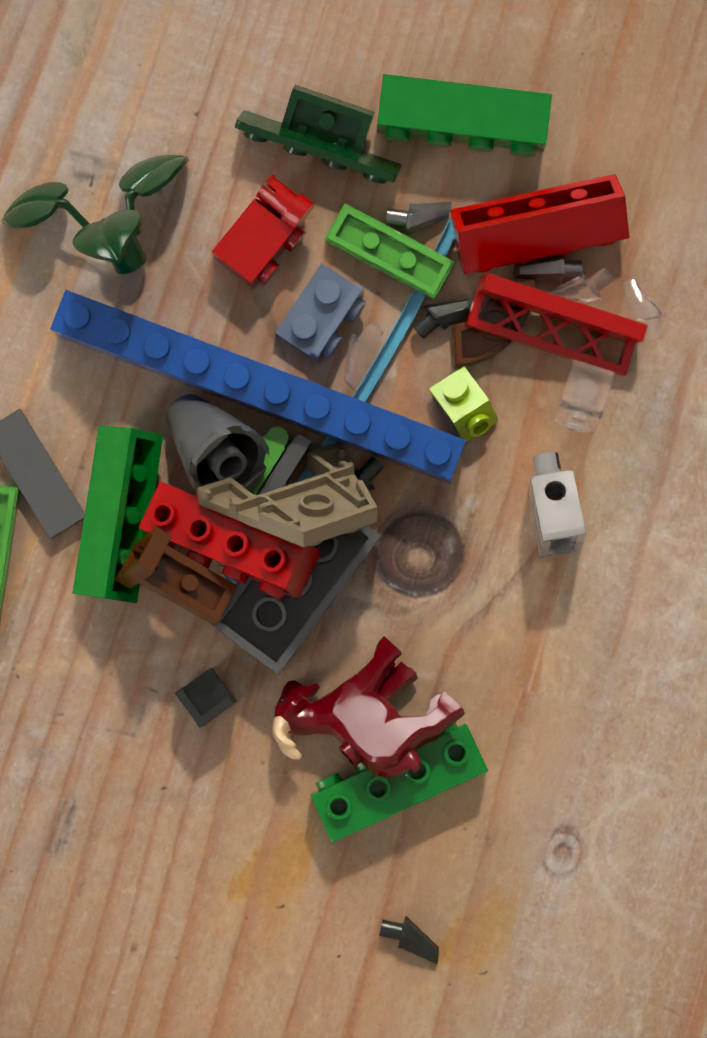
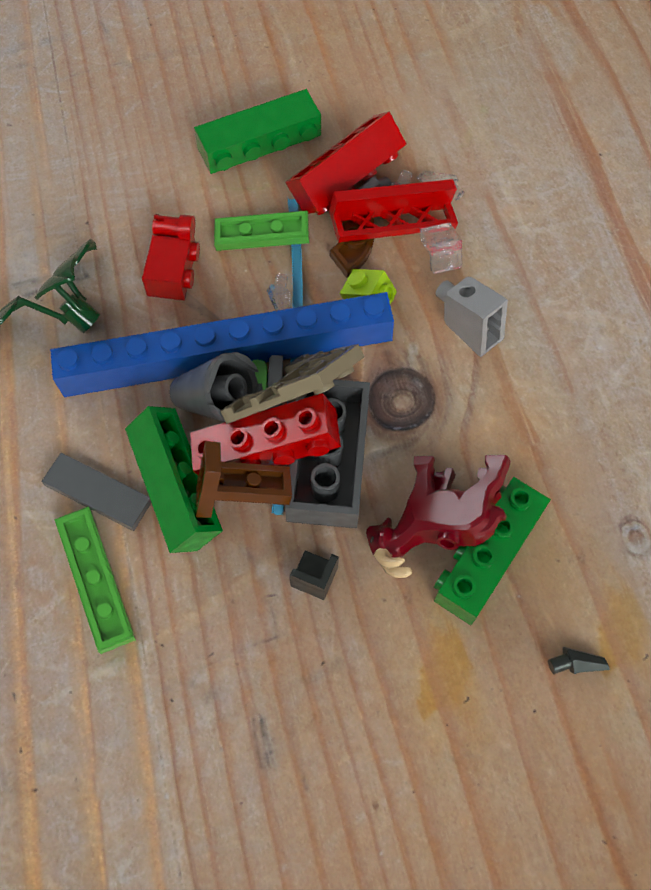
camera: 30 degrees left, 20 degrees down
(320, 313) = (238, 286): sand blue bracket -> none
(323, 129) = (175, 182): dark green bracket -> none
(418, 216) = (267, 203): flat silver bar -> none
(442, 315) = (319, 249): pearl dark grey bar -> none

